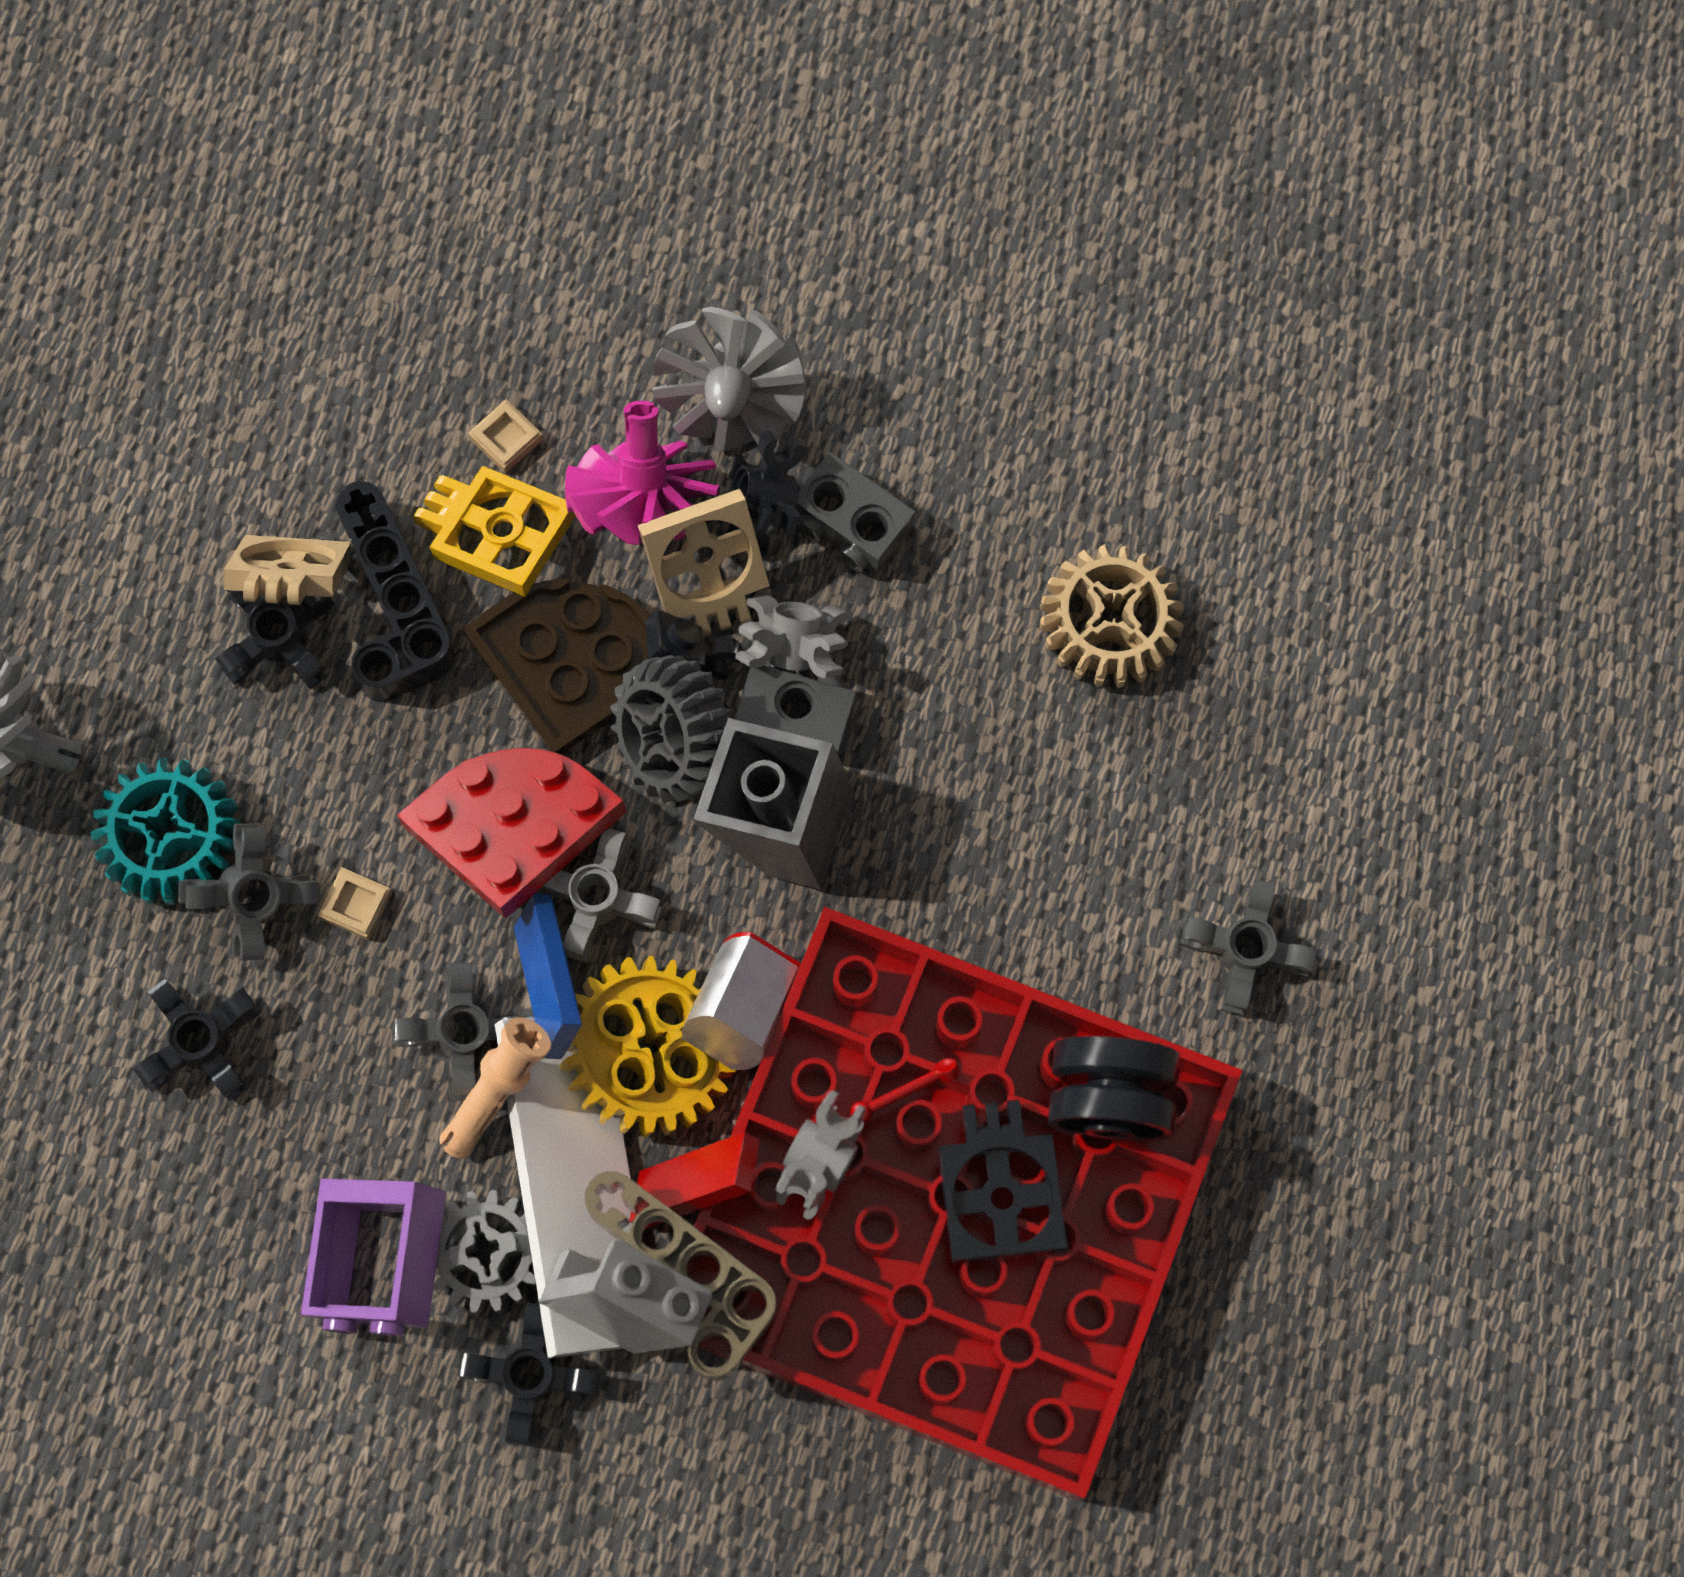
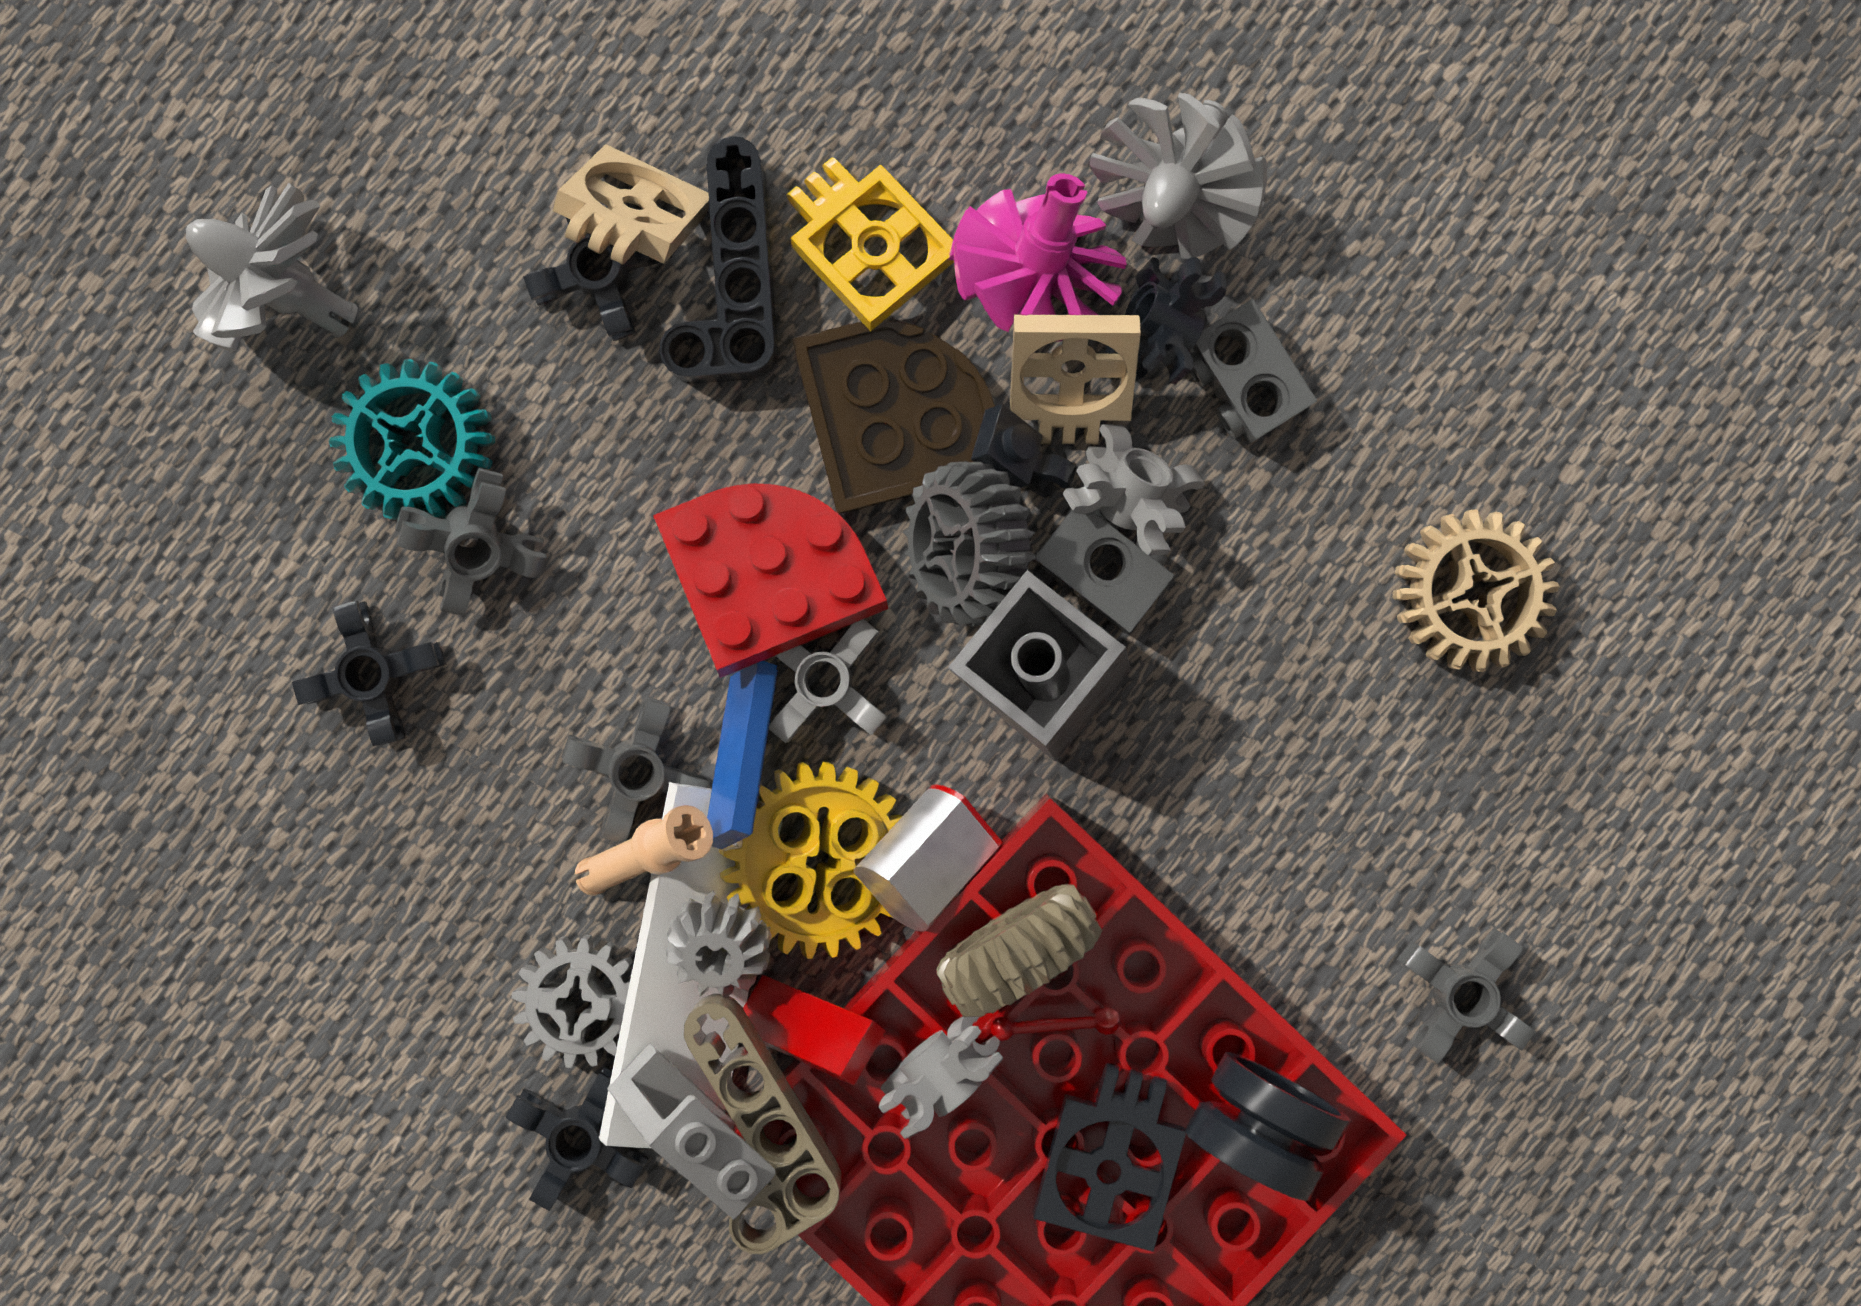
camera: 25 degrees right, 15 degrees up
(335, 1248) = (428, 944): medium lavender window -> none
(355, 903) = (579, 589): tan tile -> none
(505, 436) = (918, 138): tan tile -> none
(582, 1117) = (718, 944): none -> light grey gear
(844, 1025) = (1019, 951): none -> dark tan gear

